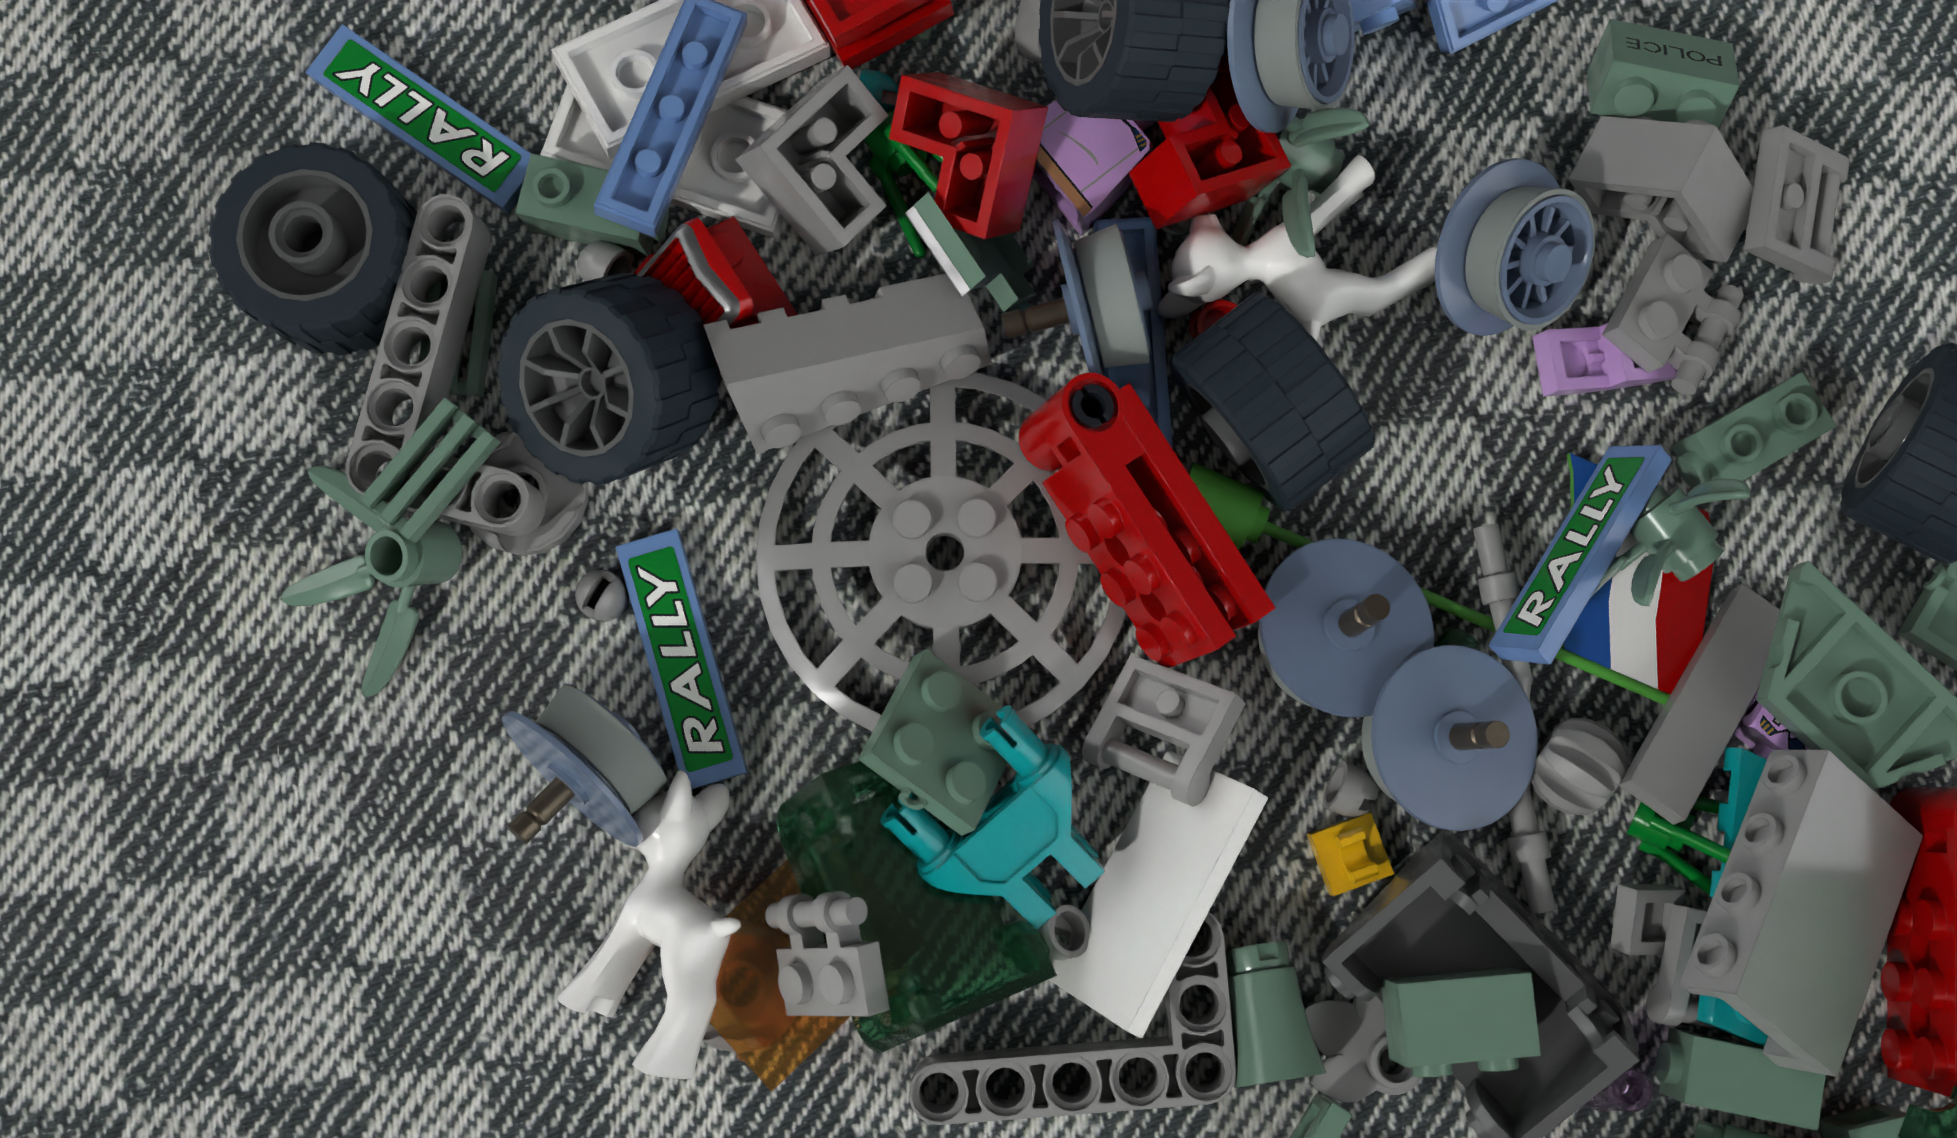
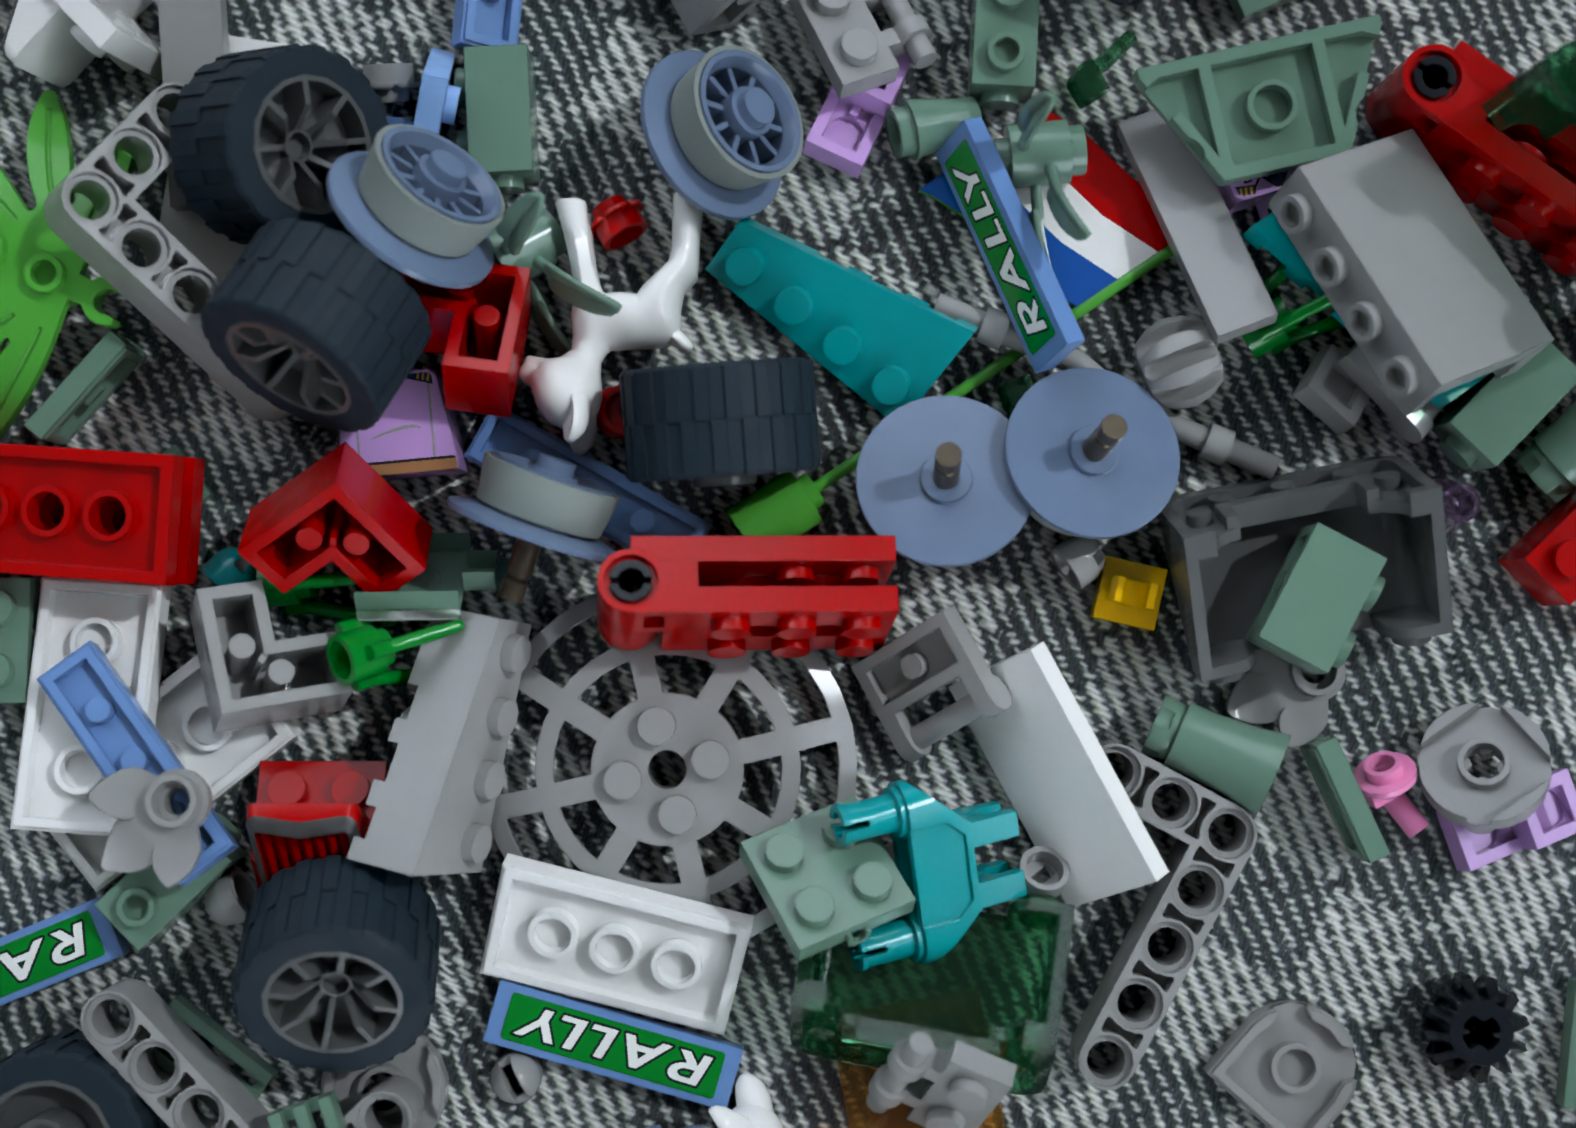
camera: 55 degrees left, 5 degrees up
(626, 148) = (146, 824): none -> light grey plate
(768, 606) = (615, 944): none -> white tile
(882, 234) = (362, 653): none -> green plant
(1371, 222) = (618, 222): none -> red plate
(1402, 66) = (500, 113): none -> sand green brick
(1421, 470) = (859, 330): none -> teal wing
(1627, 419) = (924, 125): none -> sand green cone
(1758, 536) = (1087, 82): none -> clear green hand

